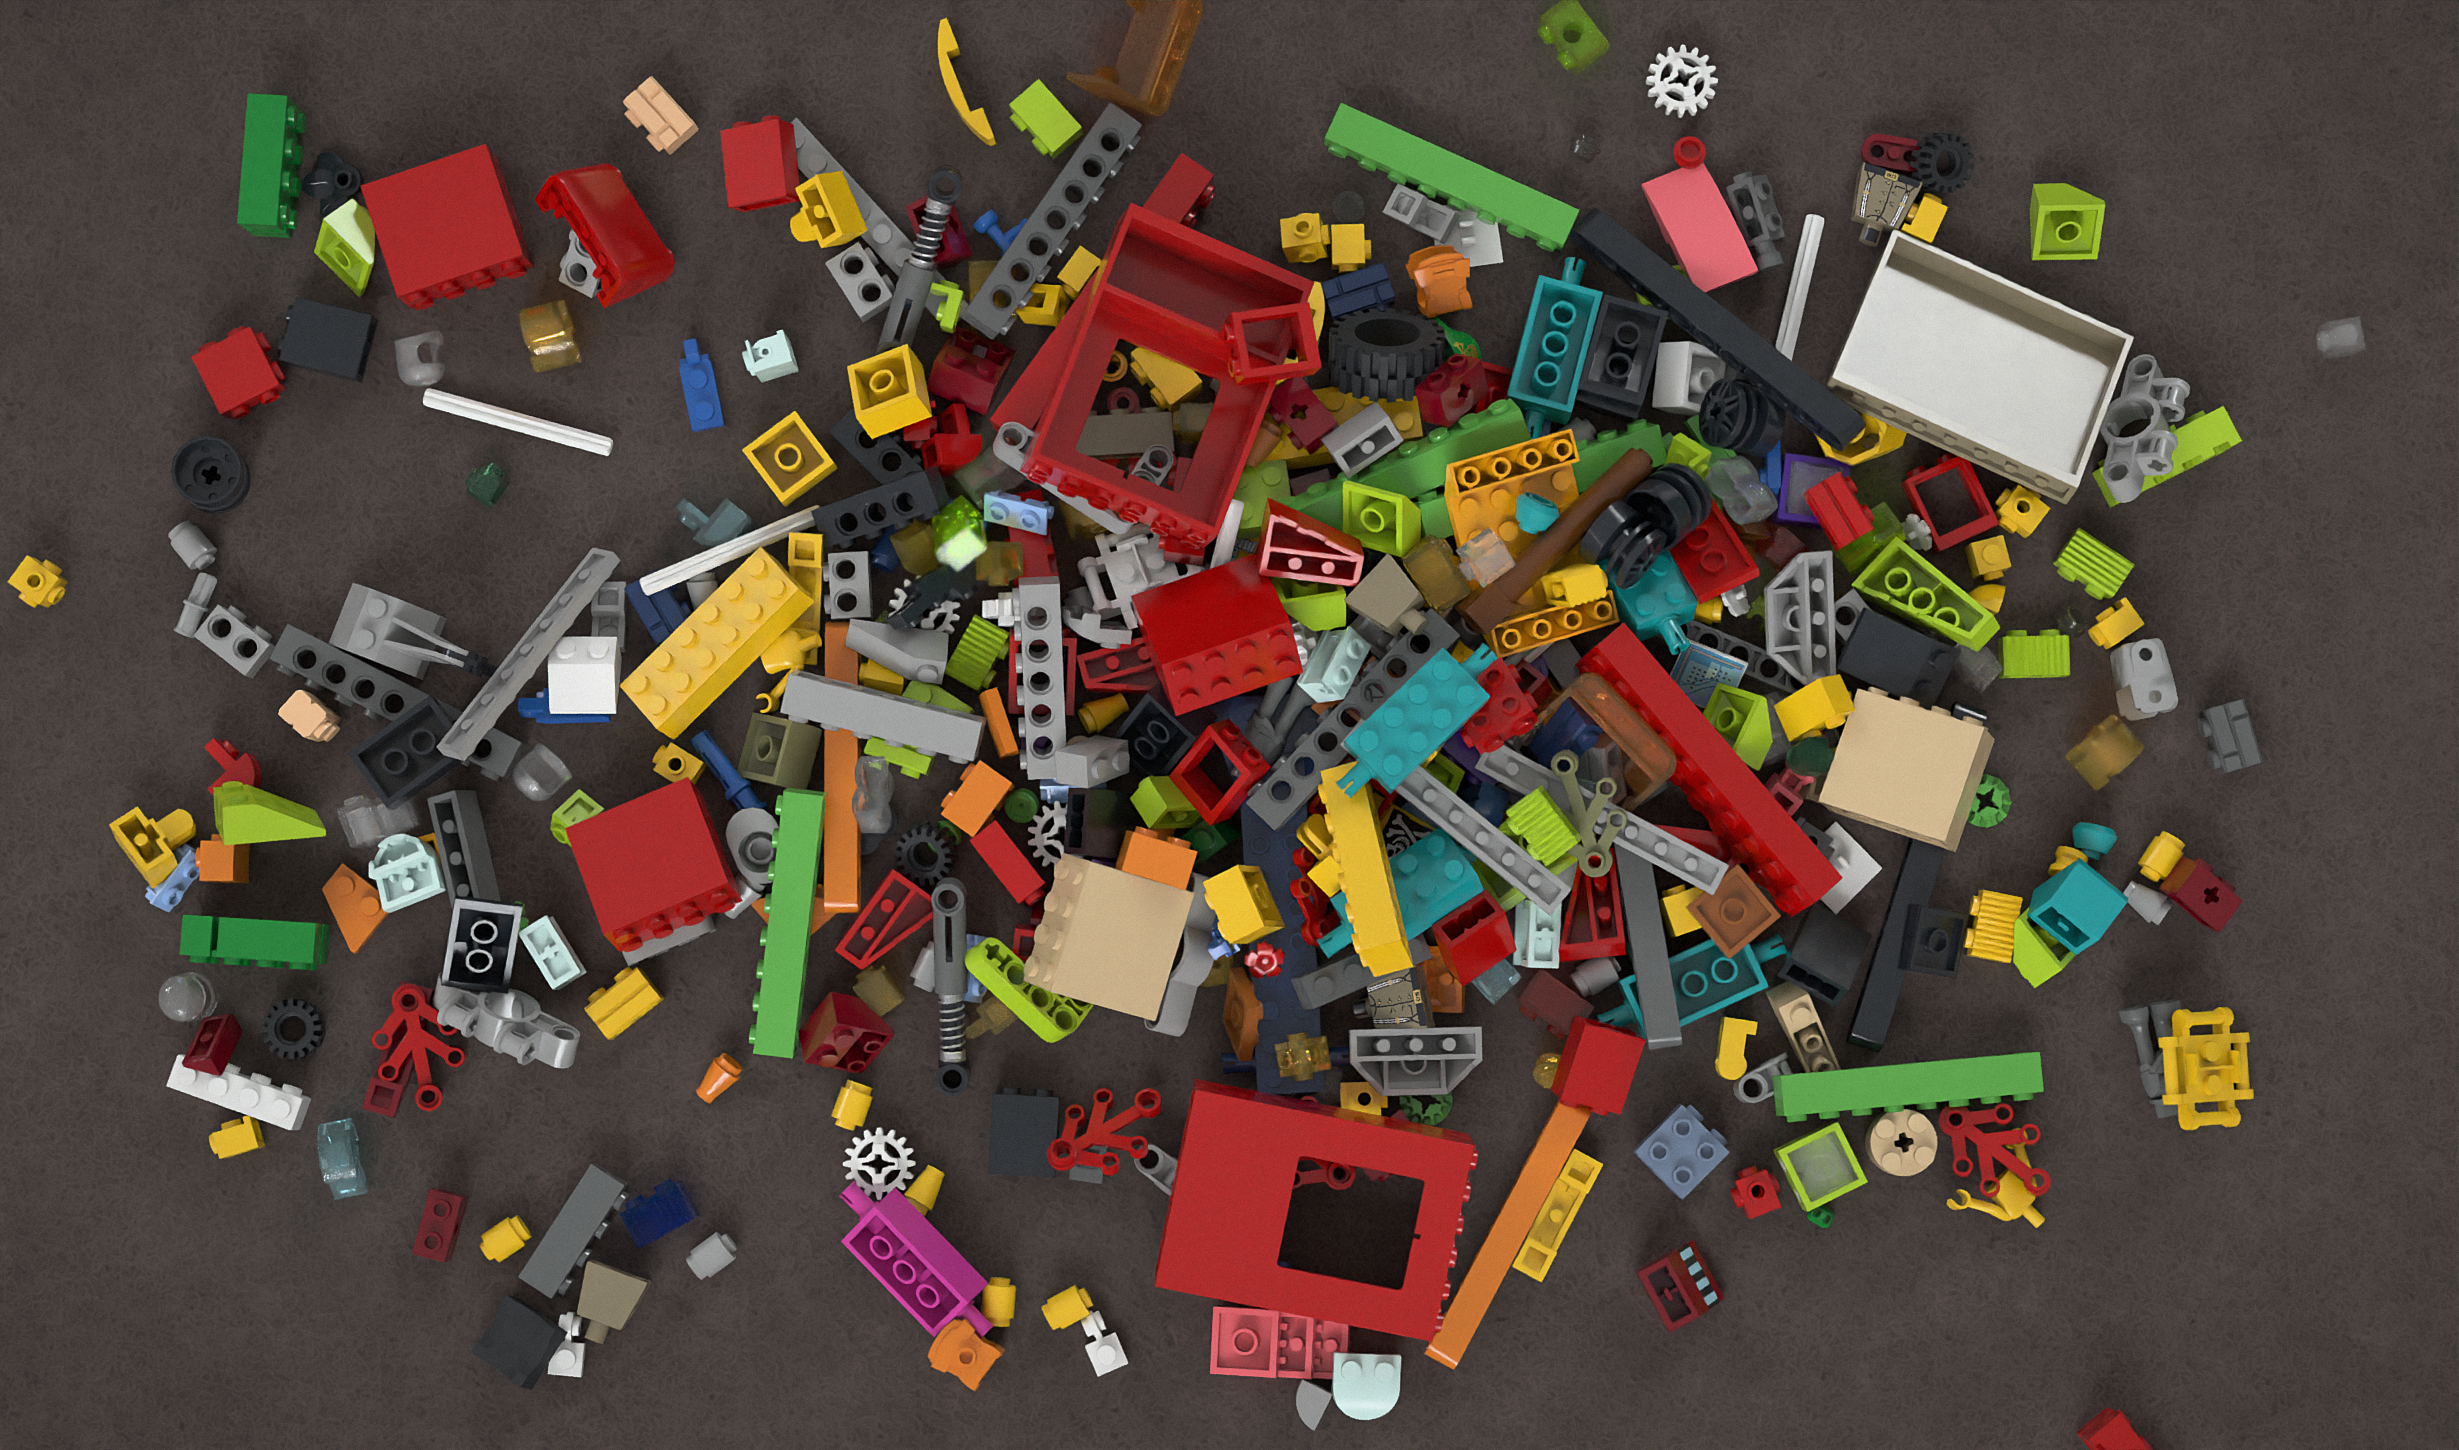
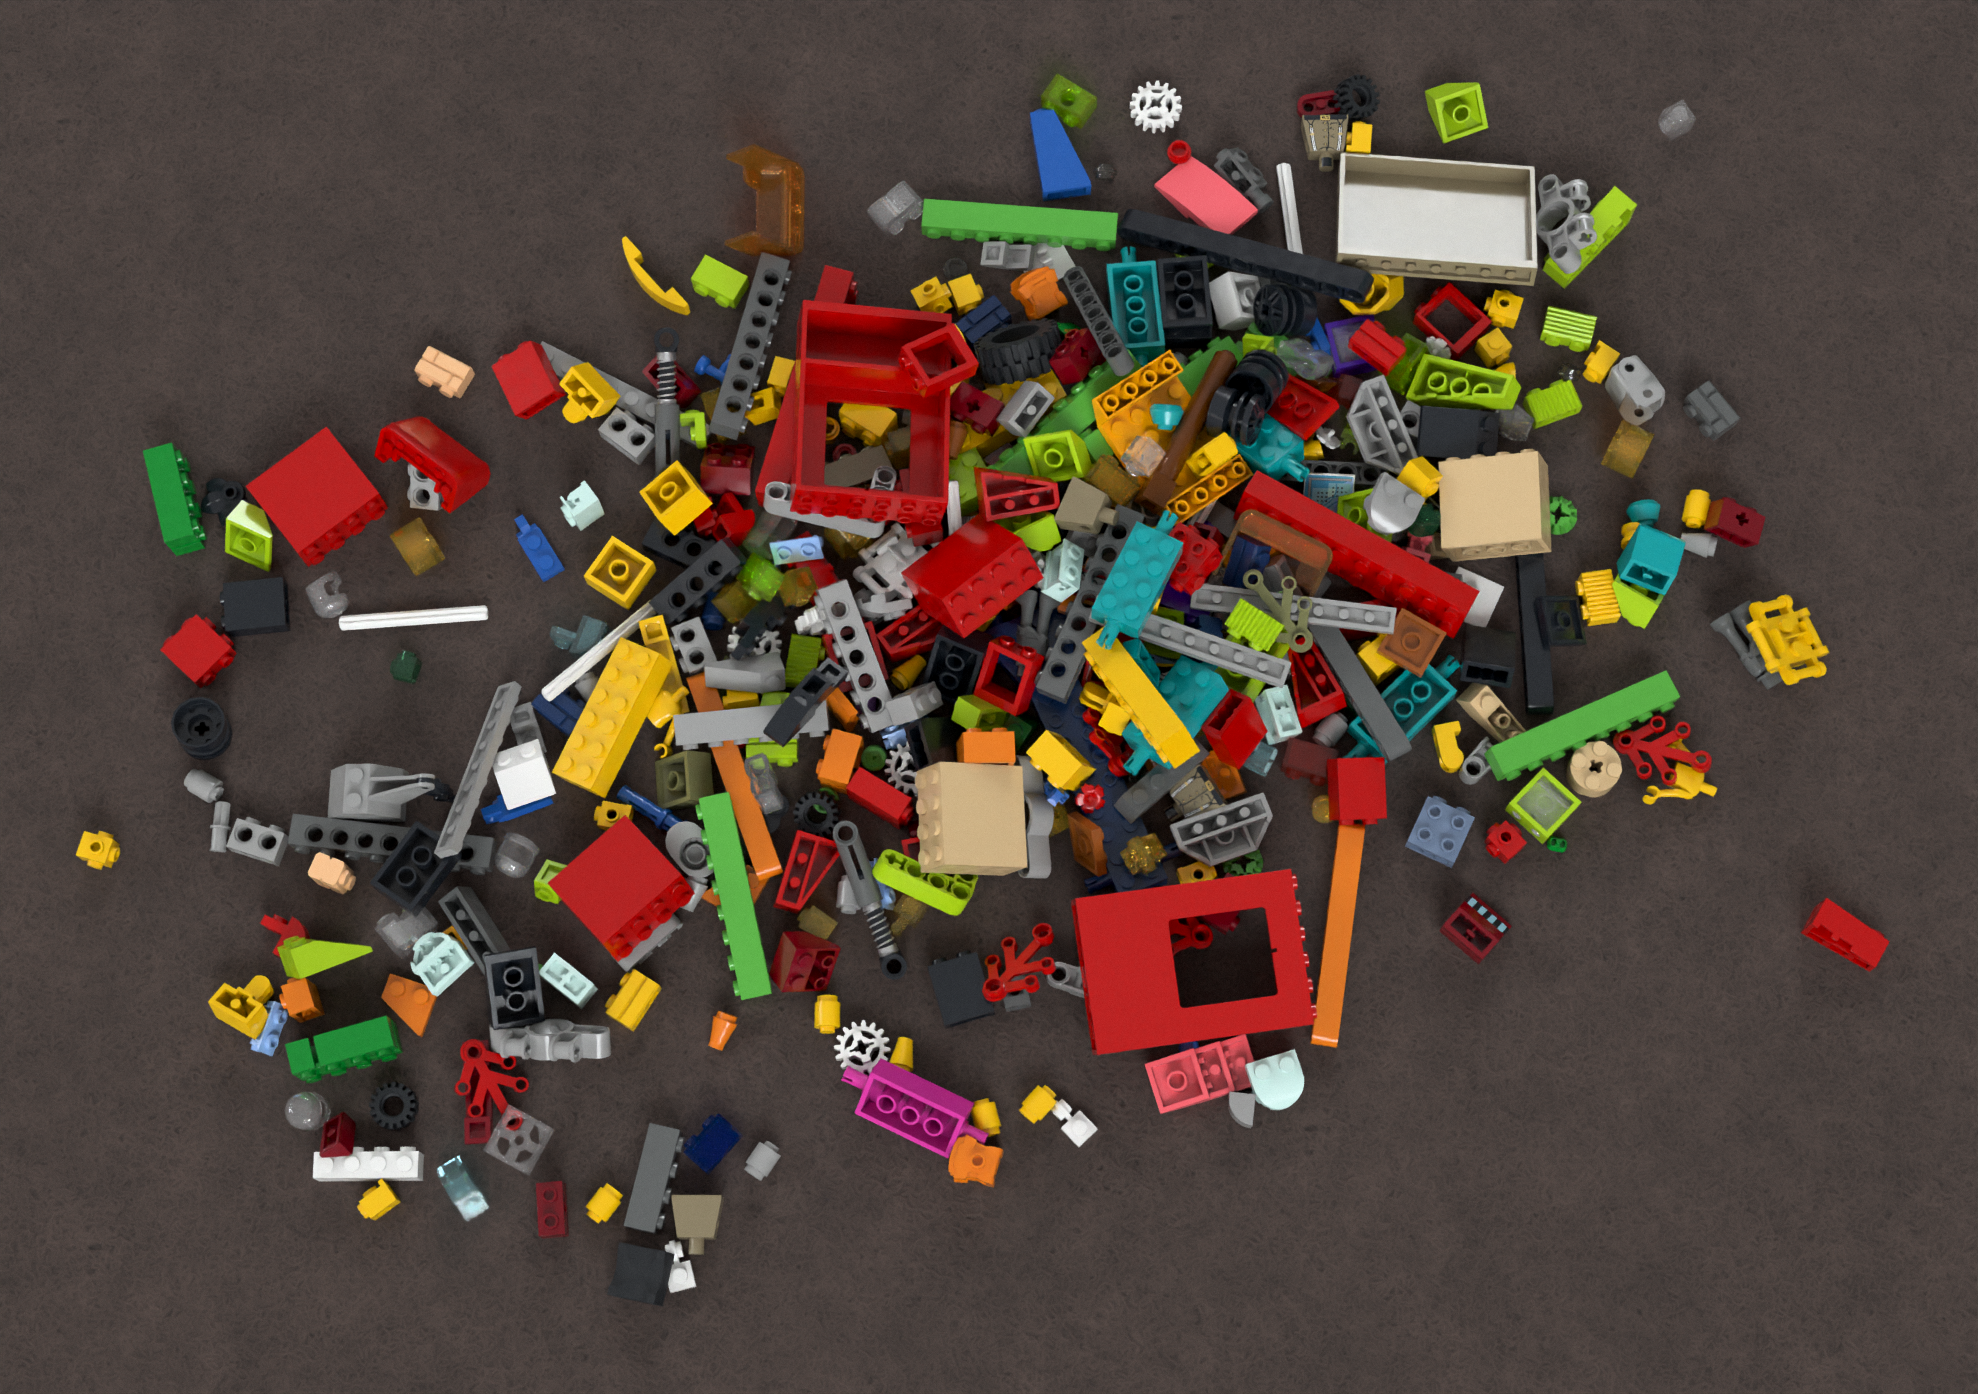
camera: 20 degrees left, 10 degrees down
(409, 1109) = (501, 1130): none -> clear piece
(954, 718) = (804, 701): none -> black slope
(1302, 100) = (895, 209): none -> clear brick
(1388, 823) = (1144, 660): none -> teal slope
(1498, 353) = (1098, 321): none -> dark grey beam
(1529, 109) = (1057, 162): none -> blue slope
(1556, 1215) = (1368, 908): yellow slope -> none
(1775, 728) = (1392, 505): none -> light grey slope

